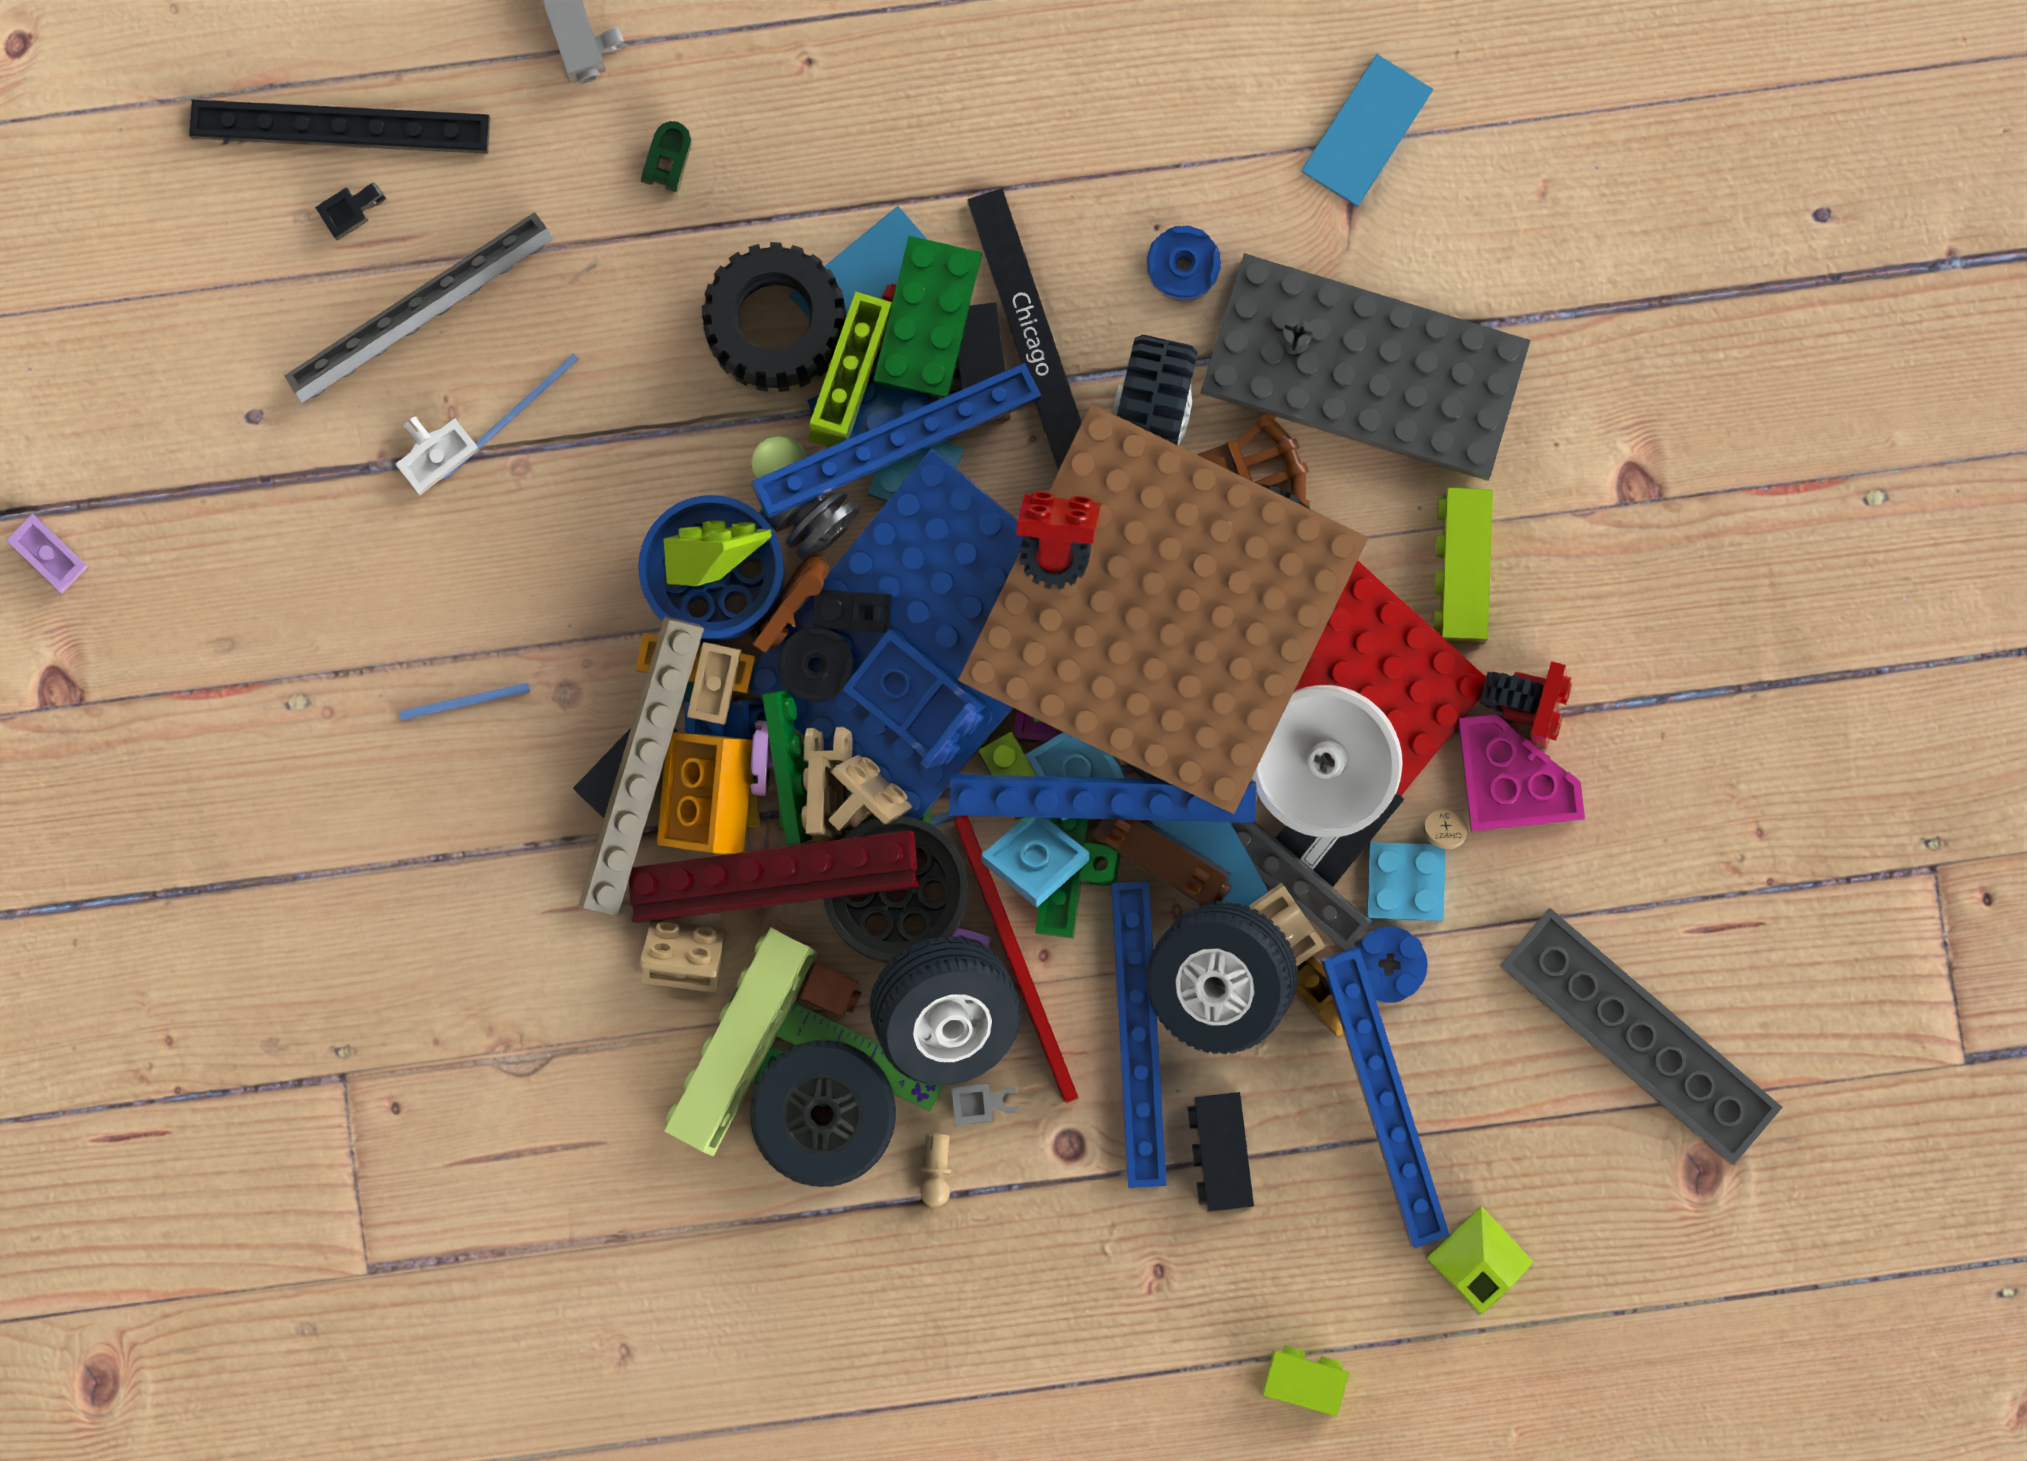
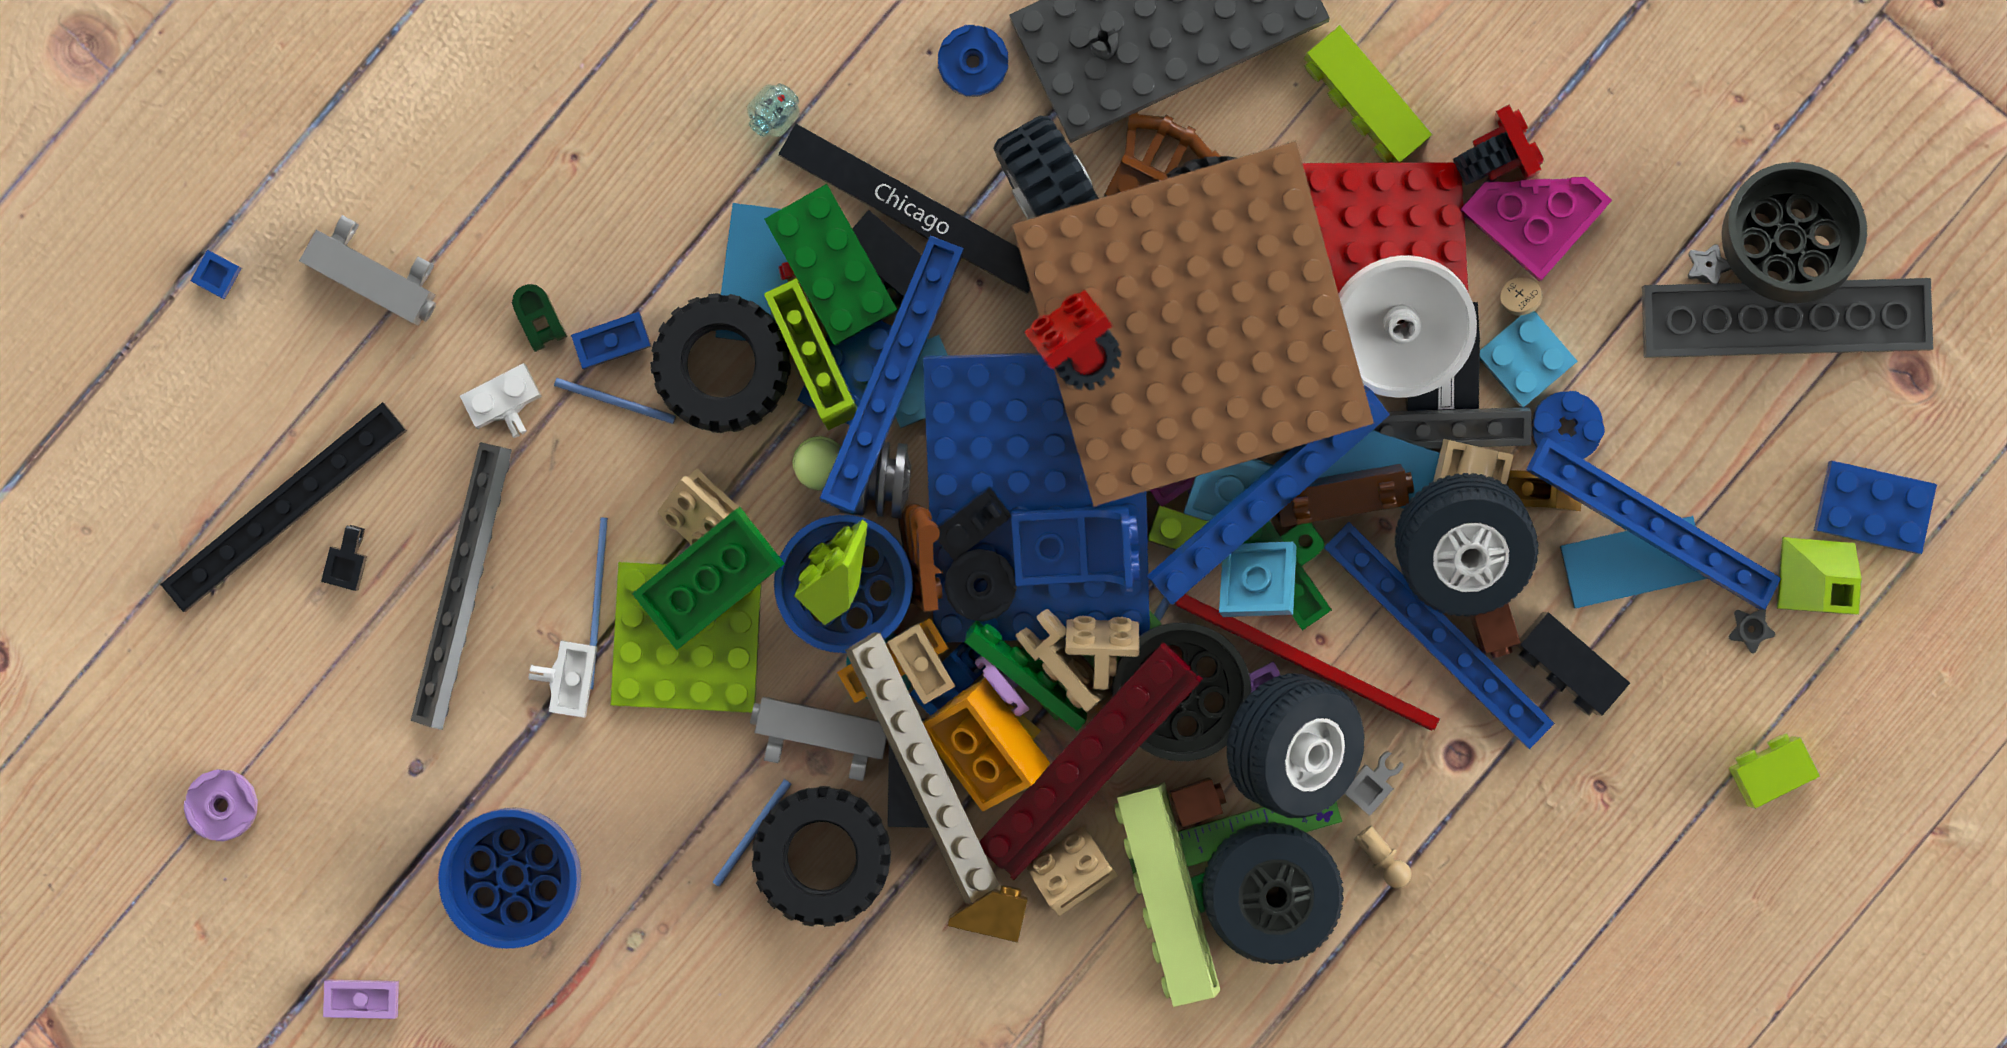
camera: 45 degrees left, 5 degrees up
(68, 293) = (202, 808): none -> lavender plate
(208, 532) = (461, 879): none -> blue wheel
(464, 728) = (809, 904): none -> black tyre
(554, 504) = (706, 673): none -> lime plate
(582, 195) = (502, 399): none -> white plate
(590, 665) = (818, 728): none -> light grey brick
(592, 934) = (994, 914): none -> pearl gold slope
(611, 469) = (708, 578): none -> green plate
(653, 419) = (695, 506): none -> tan bracket
(667, 274) = (604, 397): none -> medium blue axle
(706, 225) = (611, 340): none -> blue plate
(993, 162) = (773, 110): none -> clear light blue head
(1186, 1071) = (1496, 631): none -> copper brick
(1330, 1114) = (1620, 568): none -> dark azure piece
(1401, 1252) = (1761, 629): none -> dark grey plate
(1576, 1250) = (1875, 507): none -> blue plate
(1613, 948) = (1704, 273): none -> plate
(1720, 929) = (1830, 212): none -> pearl dark grey wheel

